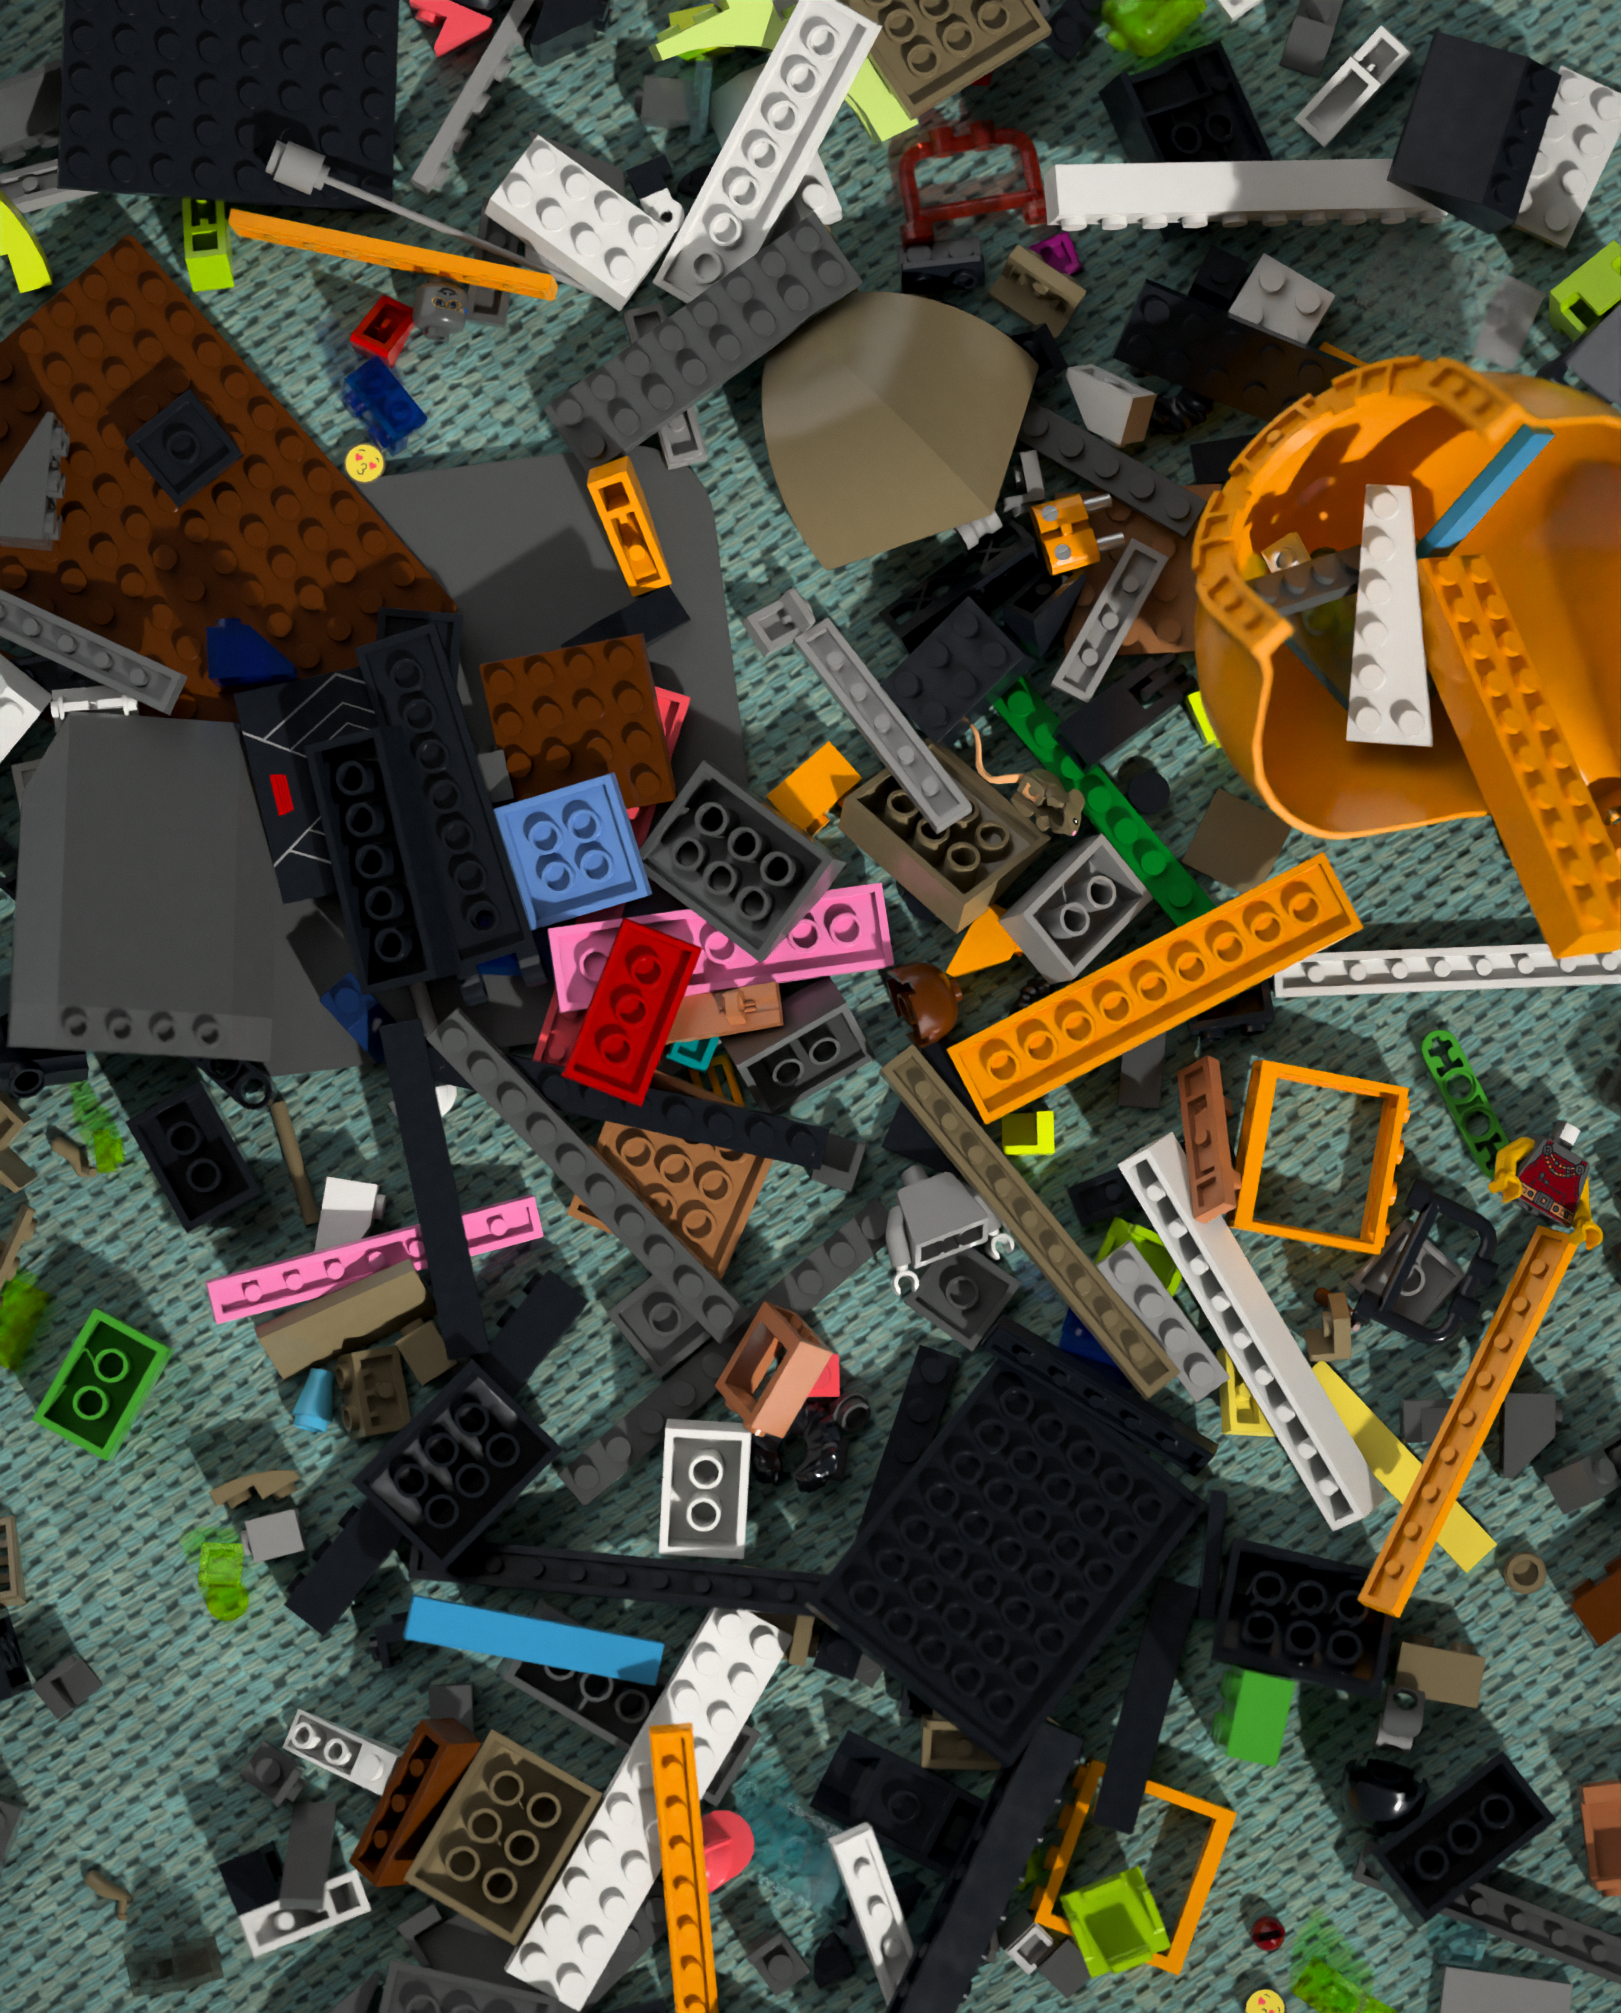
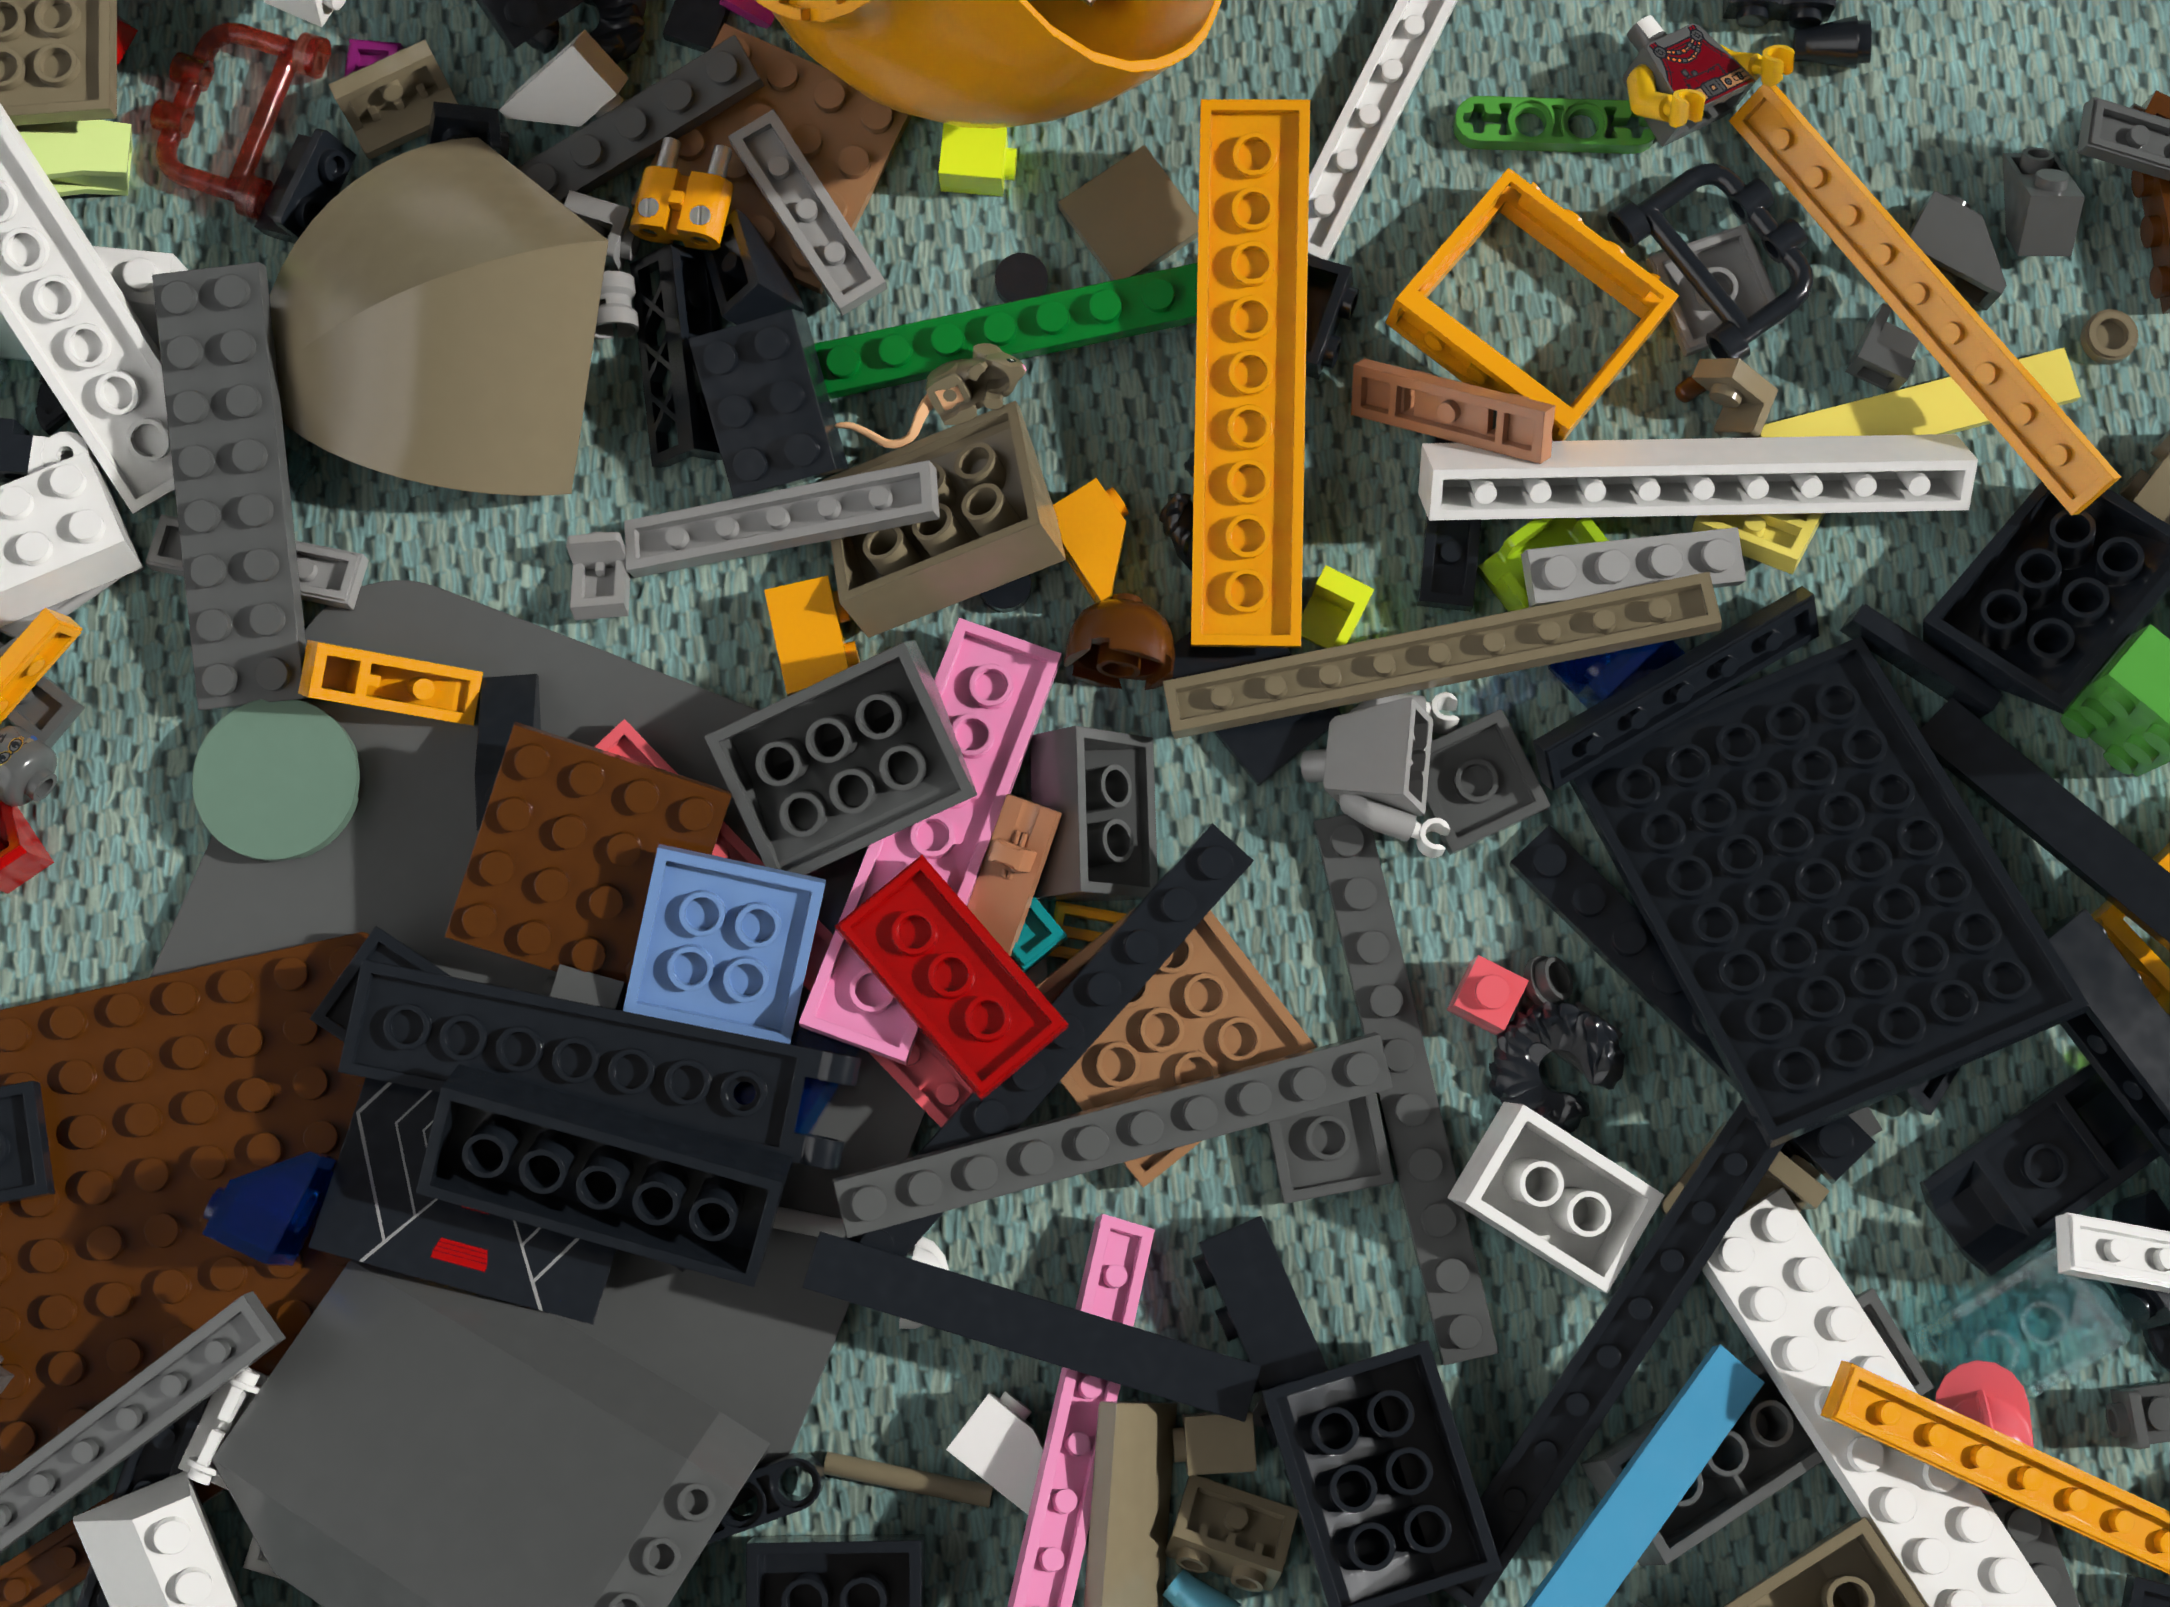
camera: 60 degrees left, 5 degrees down
(358, 1014) = (774, 1305): dark blue slope -> none
(364, 463) = (140, 950): light yellow tile -> none
(382, 405) = (83, 892): clear blue bracket -> none
(525, 488) = (276, 780): none -> sand green tile
(792, 1379) = (1489, 1023): nougat window -> none
(840, 1163) = (1258, 837): dark grey panel -> none
(949, 1748) = (1999, 1079): dark tan bracket -> none
(1075, 909) = (1111, 416): light grey brick -> none
(1117, 717) = (917, 260): black hinge -> none
(1142, 1075) = (1337, 455): dark grey tile -> none

